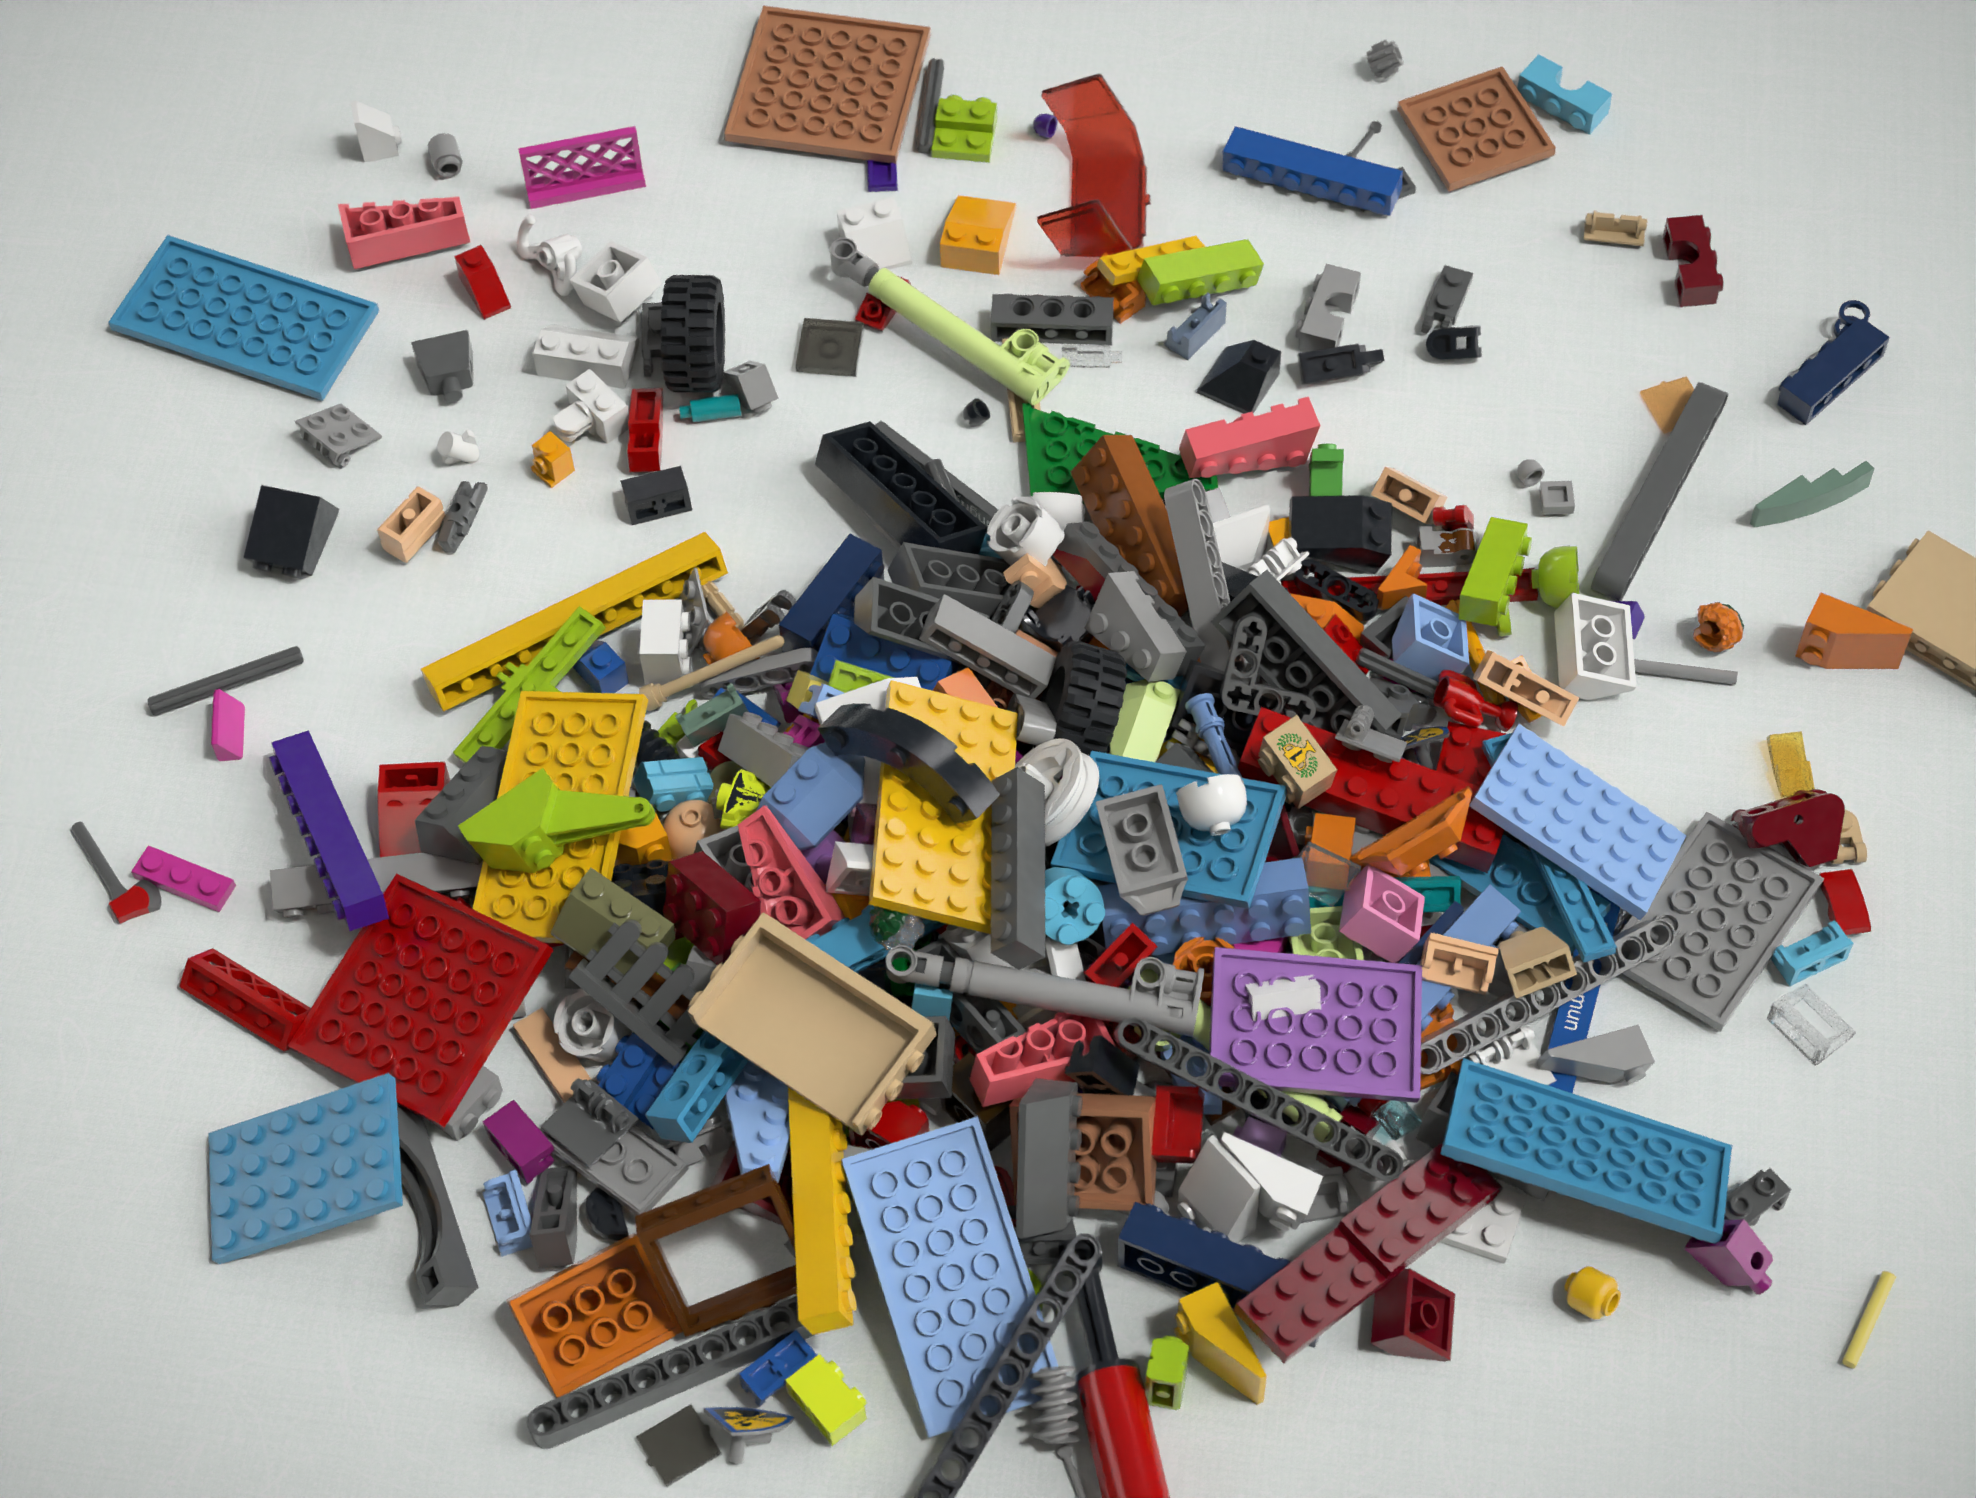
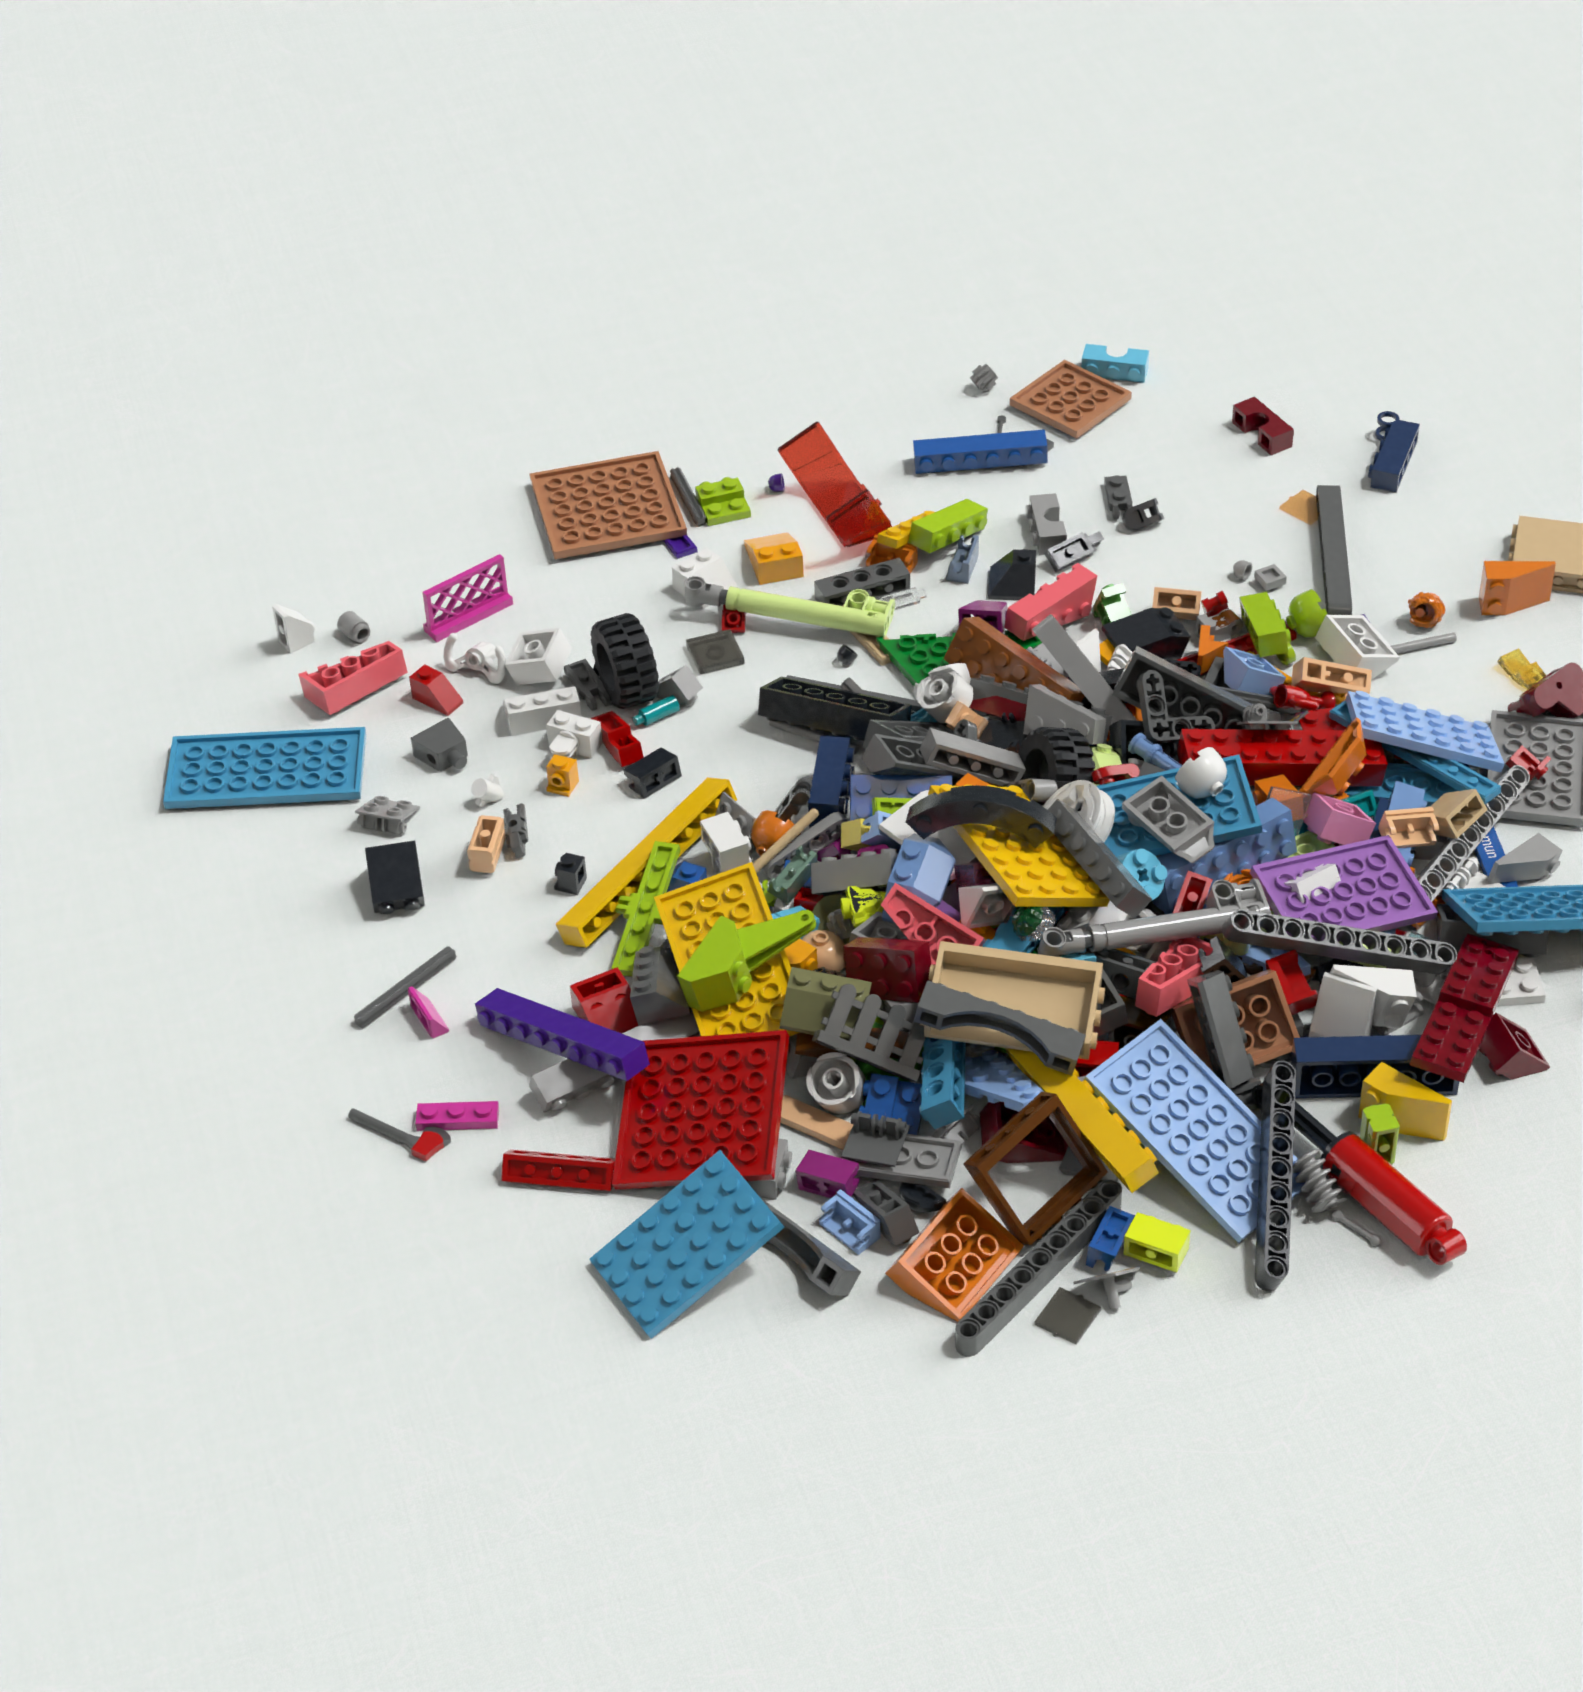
camera: 25 degrees left, 15 degrees down
(479, 595) = (570, 873): none -> black brick
(713, 1009) = (948, 1008): none -> dark grey arch
(1146, 747) = (1115, 773): none -> red plate
(1161, 424) = (990, 611): none -> magenta torso
(1296, 762) = (1237, 735): tan brick -> none
(1606, 228) = (1192, 424): tan hinge -> none
(1690, 916) = (1527, 760): none -> bracket
(1805, 498) = (1429, 526): sand green slope -> none

